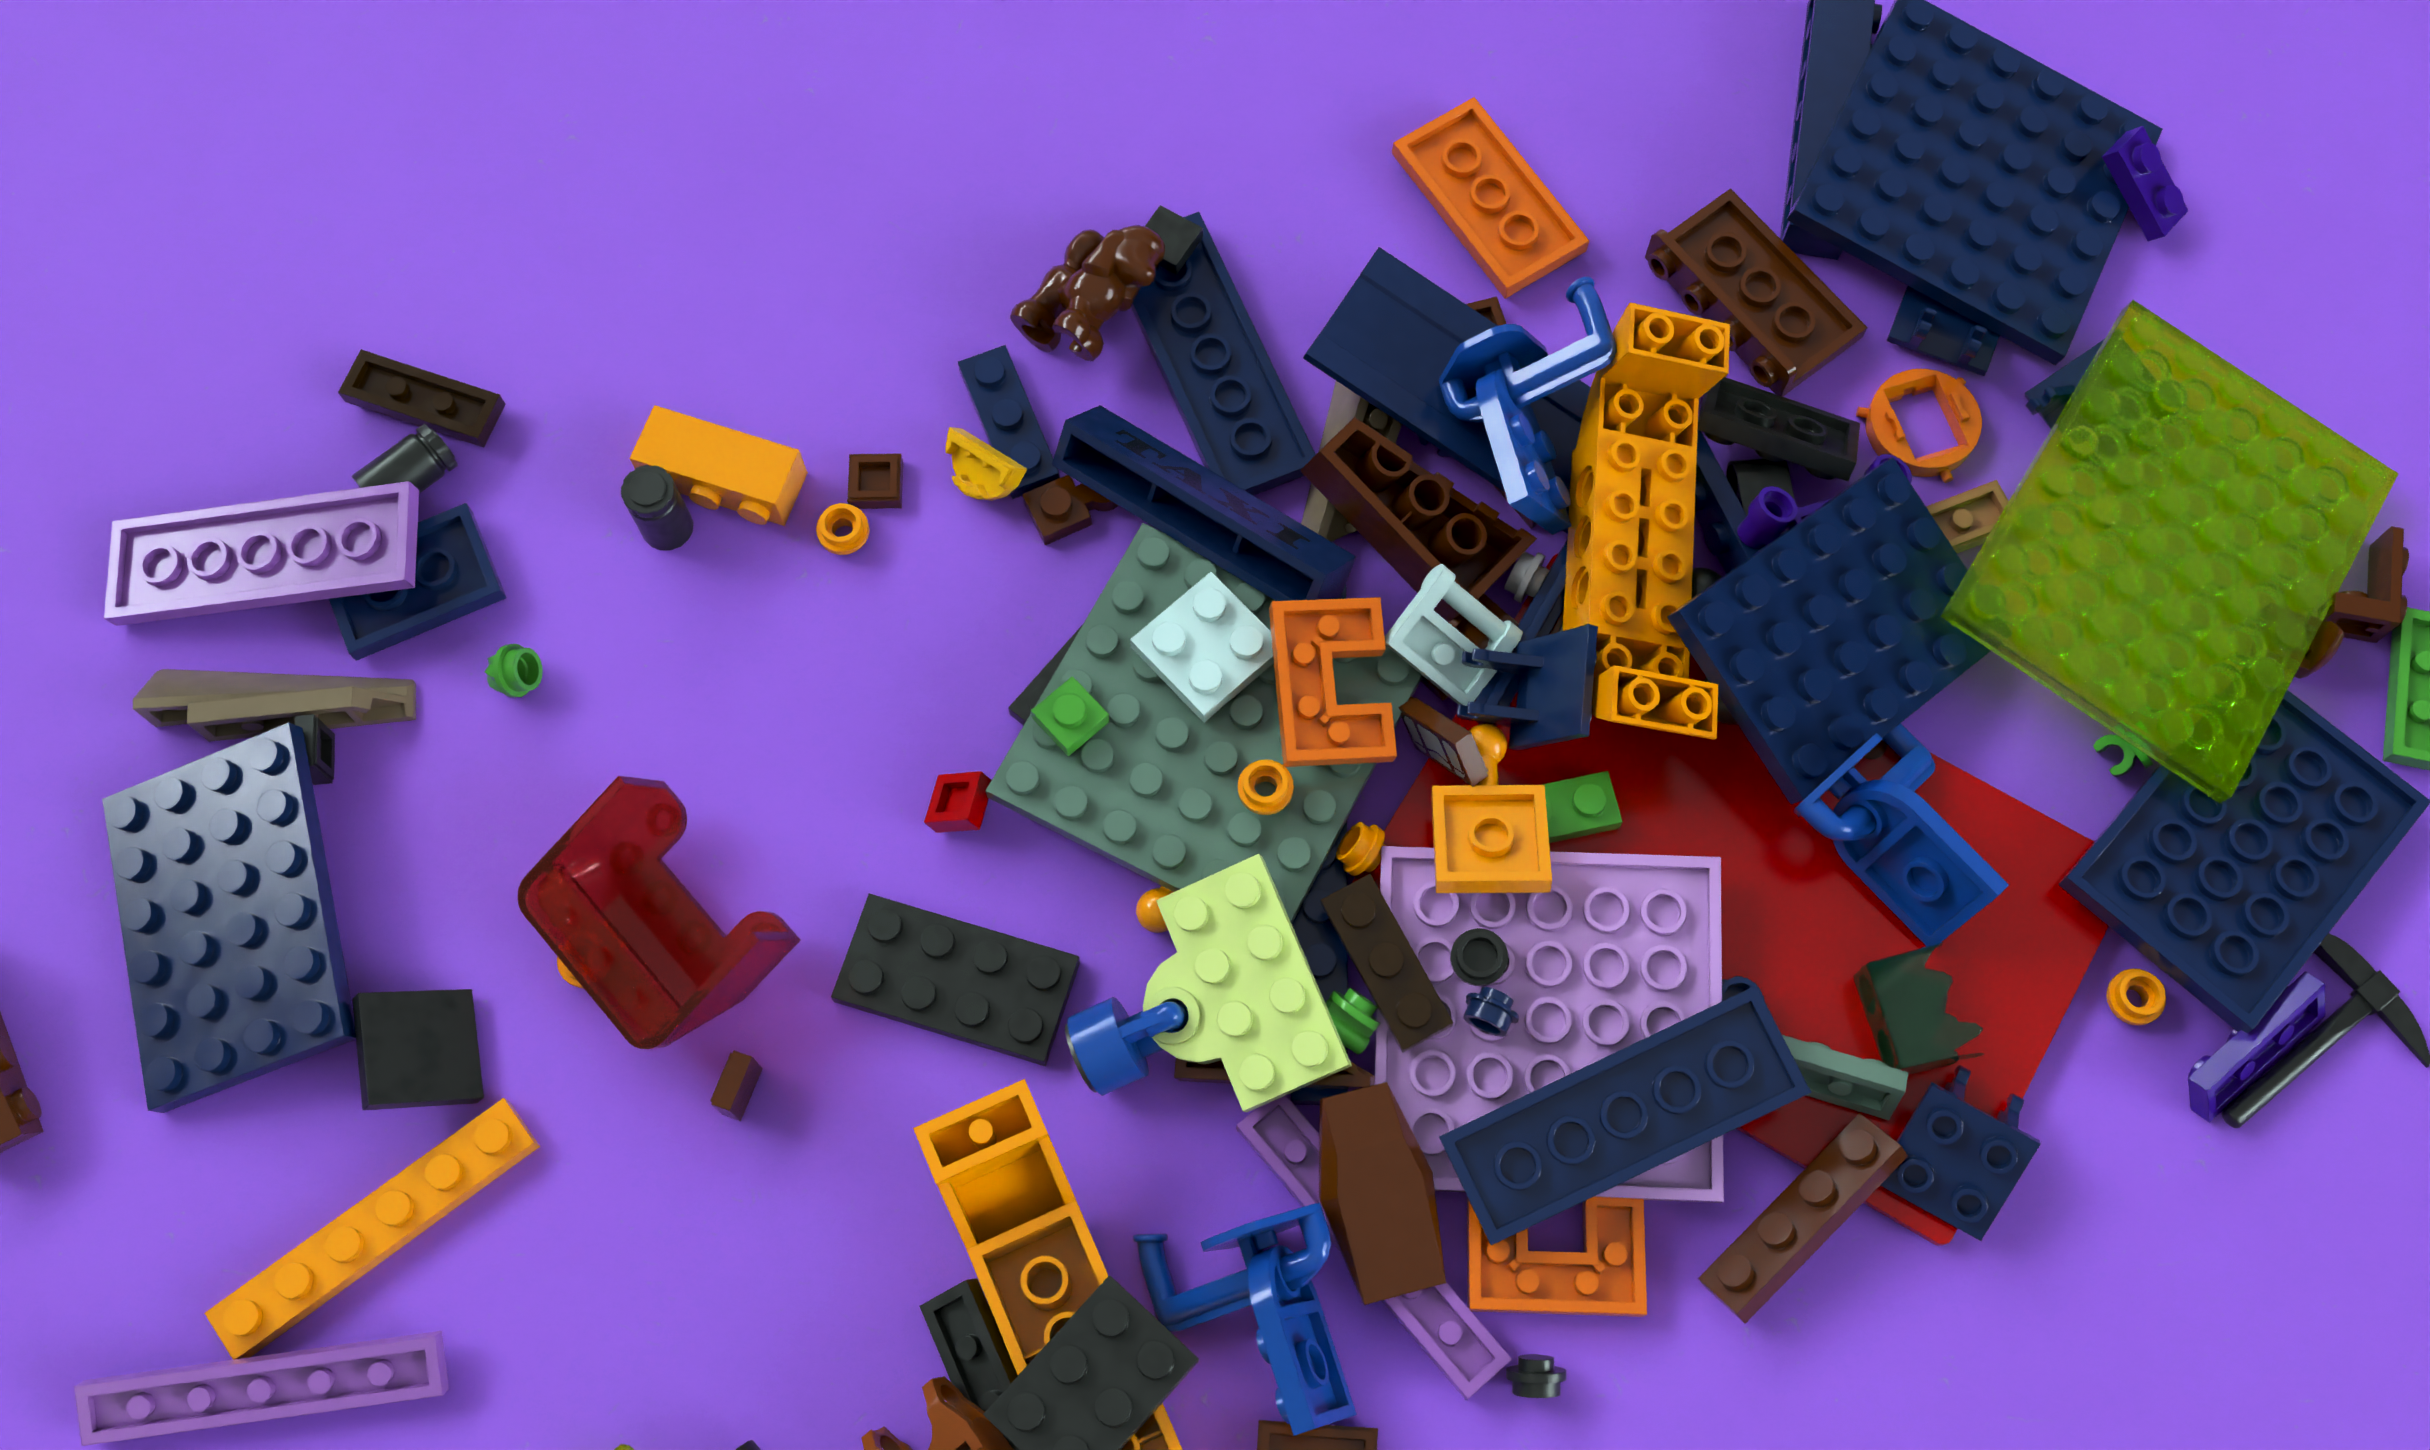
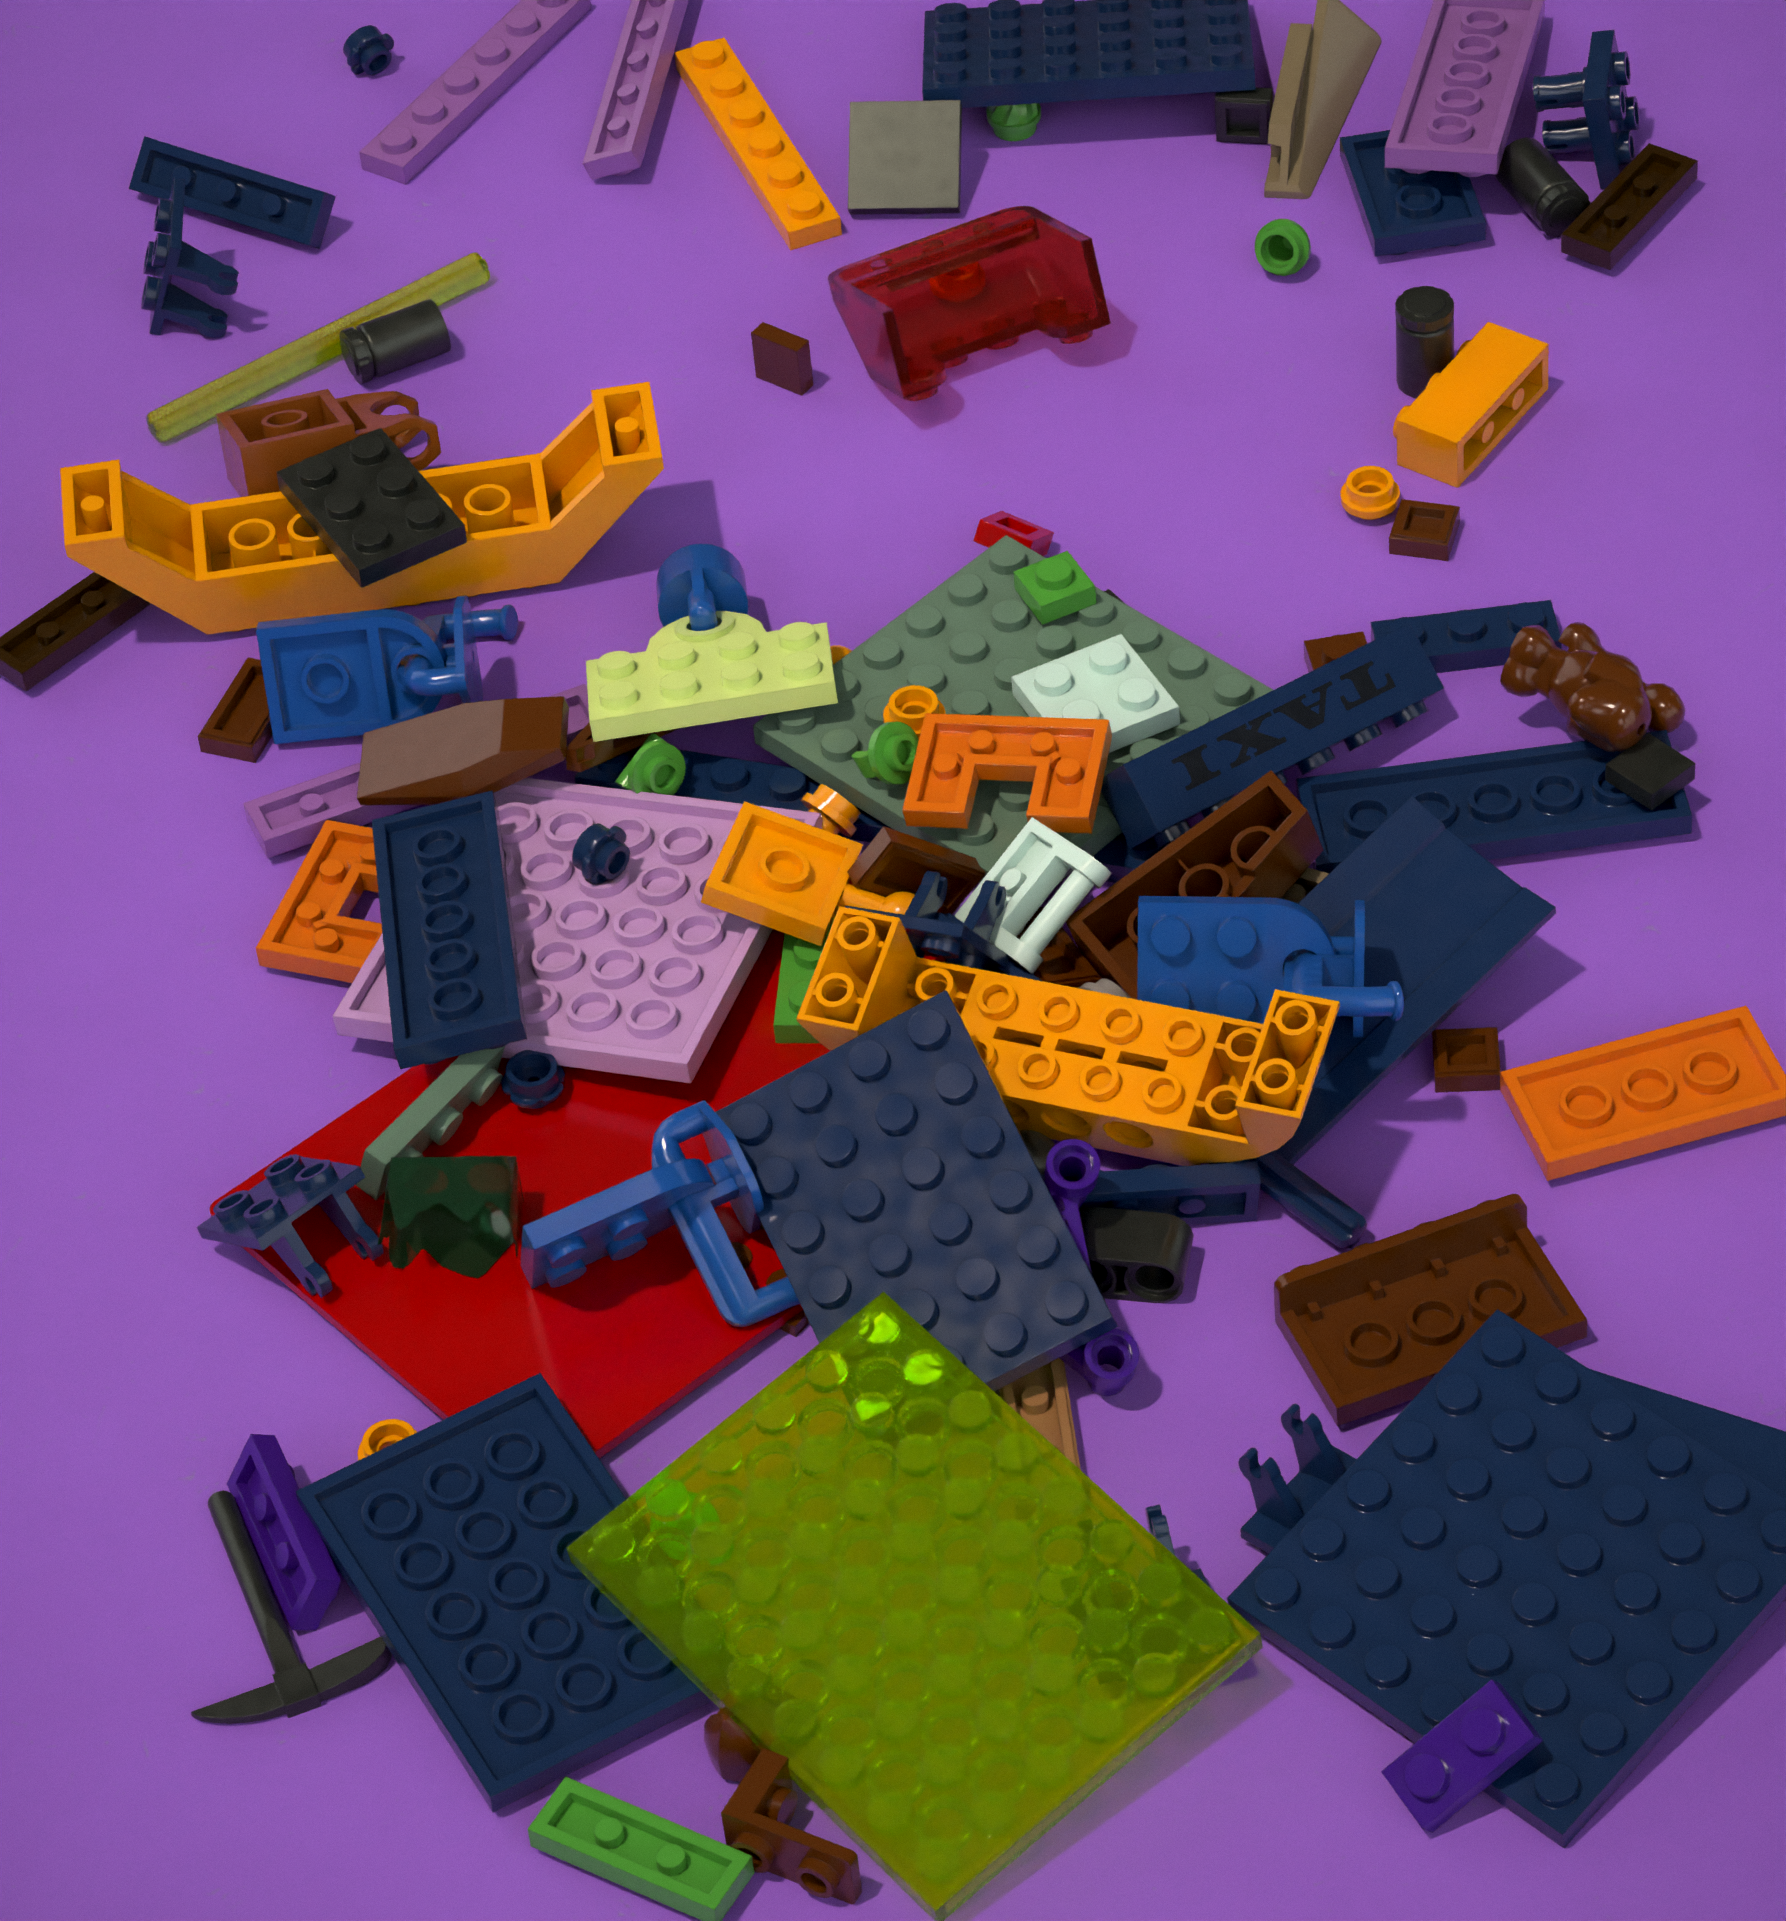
camera: 110 degrees right, 25 degrees down
(310, 429) = (1606, 107): none -> dark blue plate
(956, 979) = (834, 525): pearl dark grey plate -> none
(980, 468) = (1402, 597): yellow plate -> none
(1327, 783) = (889, 753): none -> bright green plate
(1386, 963) = (693, 792): dark brown plate -> none
(1479, 957) = (662, 853): pearl dark grey plate -> none
(1536, 1376) = (239, 862): pearl dark grey plate -> none
(1780, 429) = (1213, 1272): pearl dark grey plate -> none
(1802, 1217) = (288, 1081): reddish brown plate -> none
(1956, 403) = (1190, 1496): orange piece -> none

